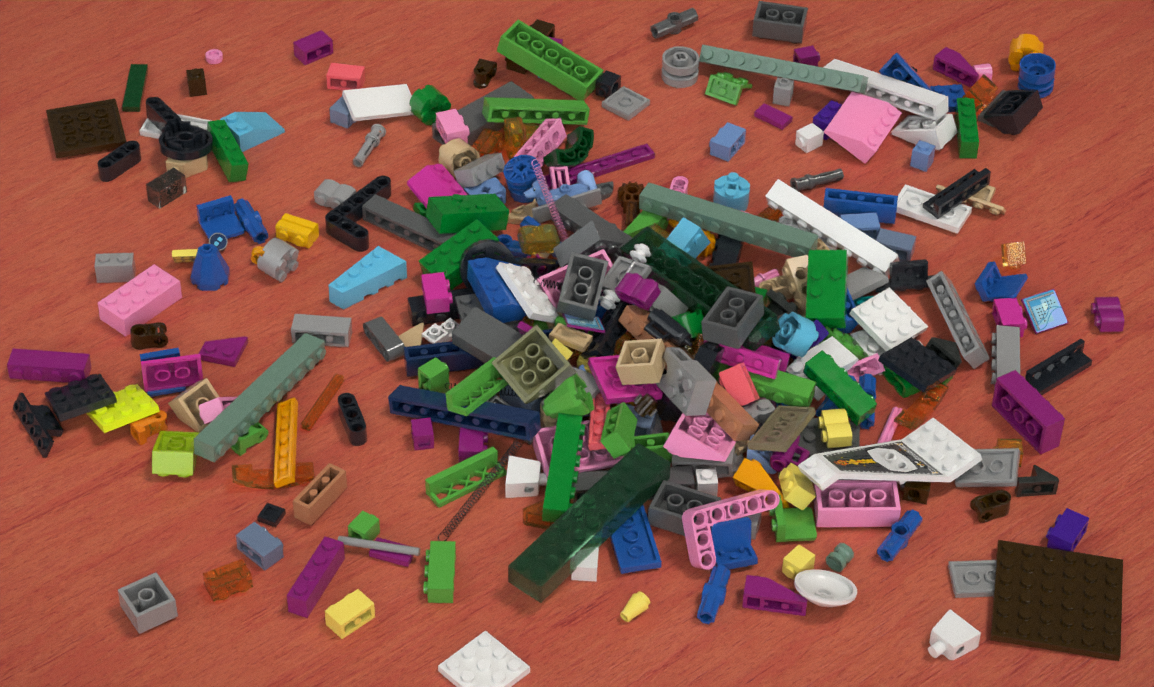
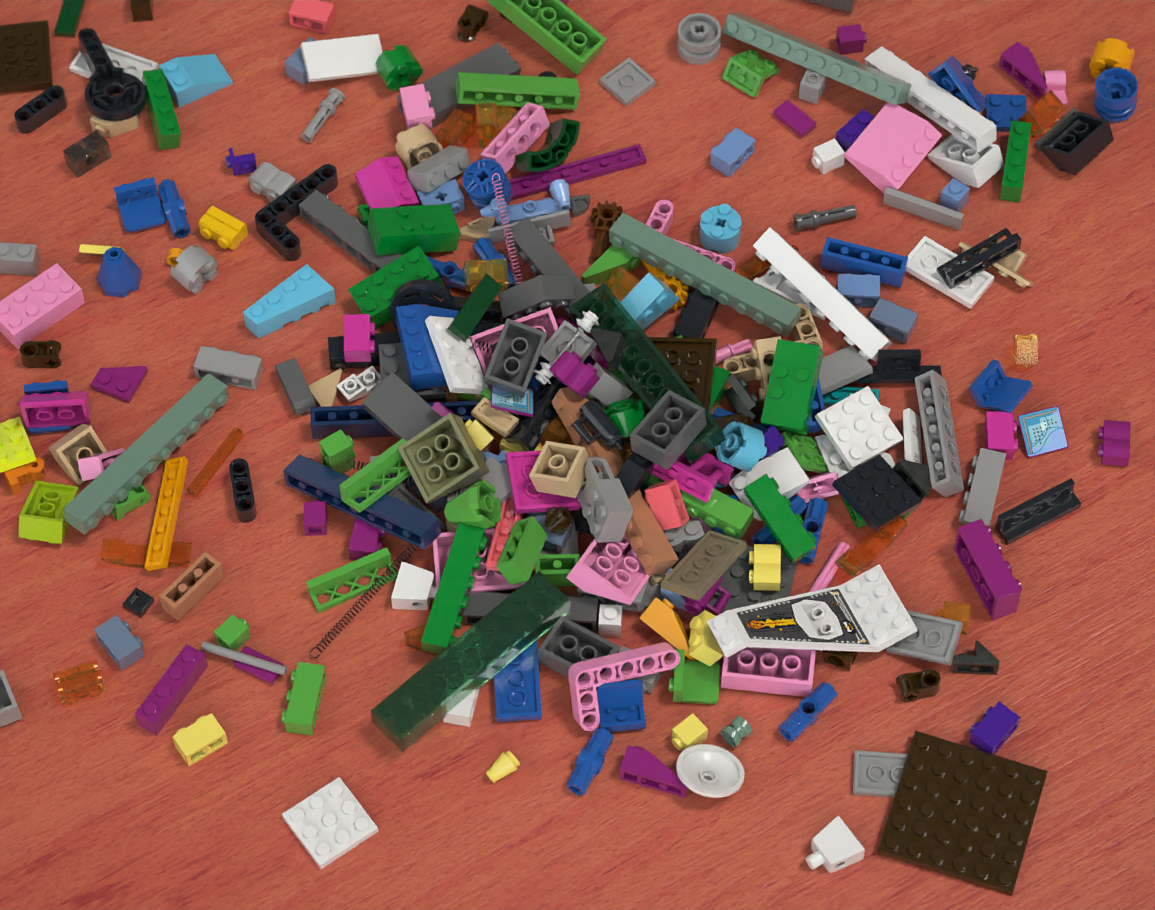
camera: 10 degrees right, 15 degrees up
(218, 240) = (133, 234): dark blue tile -> none
(304, 184) = (241, 164): none -> dark purple bracket
(536, 257) = (475, 307): none -> dark green tile
(558, 170) = (537, 185): bright pink tile -> none
(608, 84) = (610, 55): black brick -> none
(664, 267) = (611, 344): none -> pearl dark grey slope
(898, 166) = (923, 208): none -> light grey tile
(933, 321) = (912, 436): none -> white tile

